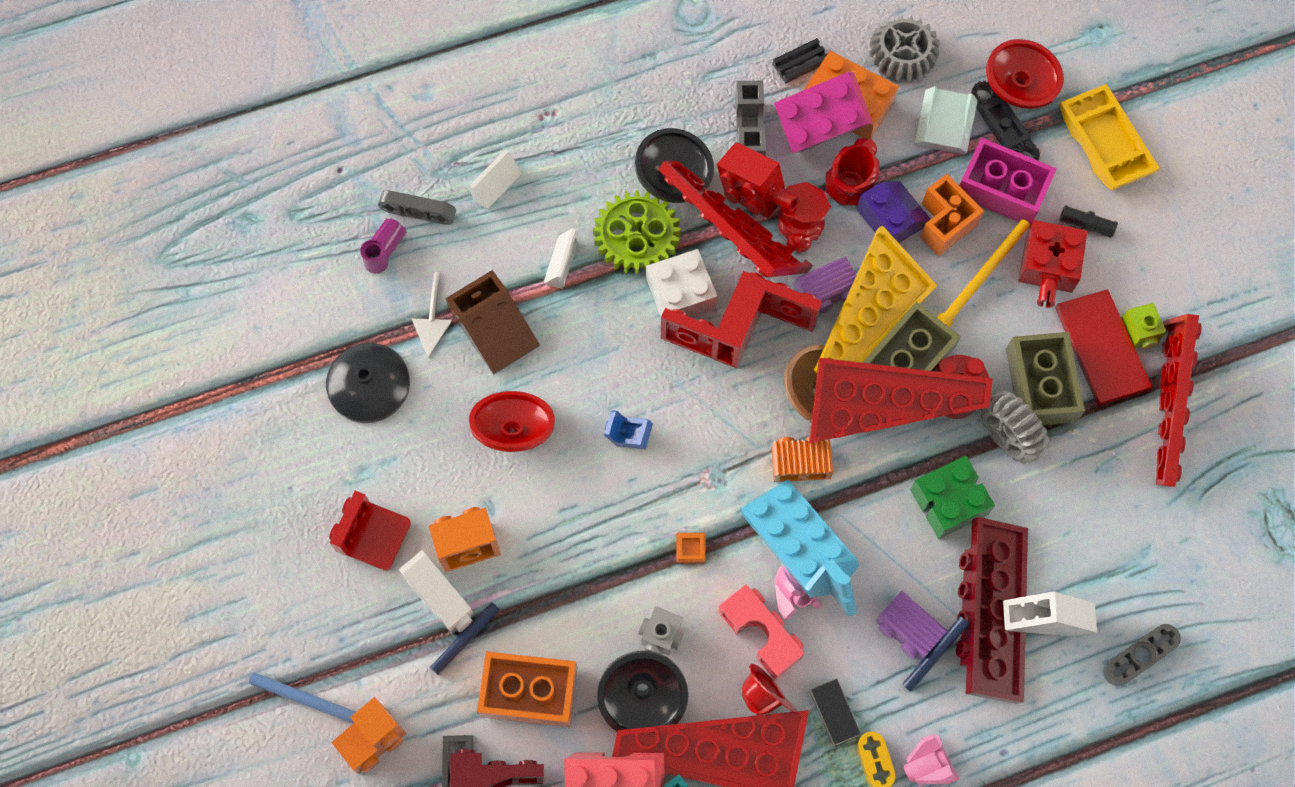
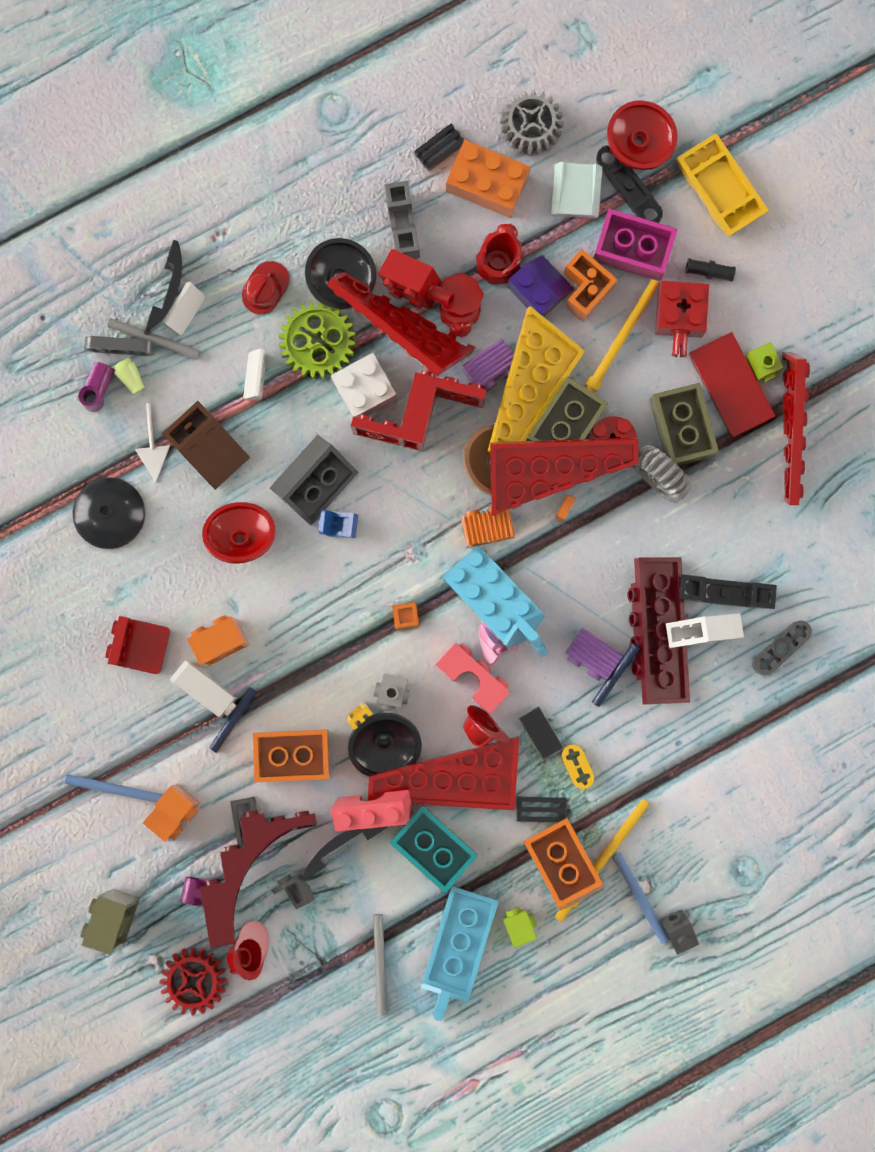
camera: 10 degrees left, 15 degrees up
(421, 238) = (129, 375): none -> yellowish green cone
(460, 208) = (158, 340): none -> light grey bar
(465, 177) = (174, 264): none -> black slope
(588, 173) = (265, 287): none -> red piece
(608, 378) = (314, 479): none -> dark grey slope
(617, 651) = (357, 714): none -> yellow tile
(823, 112) = (466, 205): dark pink brick -> none
(895, 452) = (565, 508): none -> orange tile
(930, 763) = (621, 763): bright pink brick -> none
(954, 496) = (616, 540): green piece -> none
(1080, 579) = (727, 592): none -> black slope

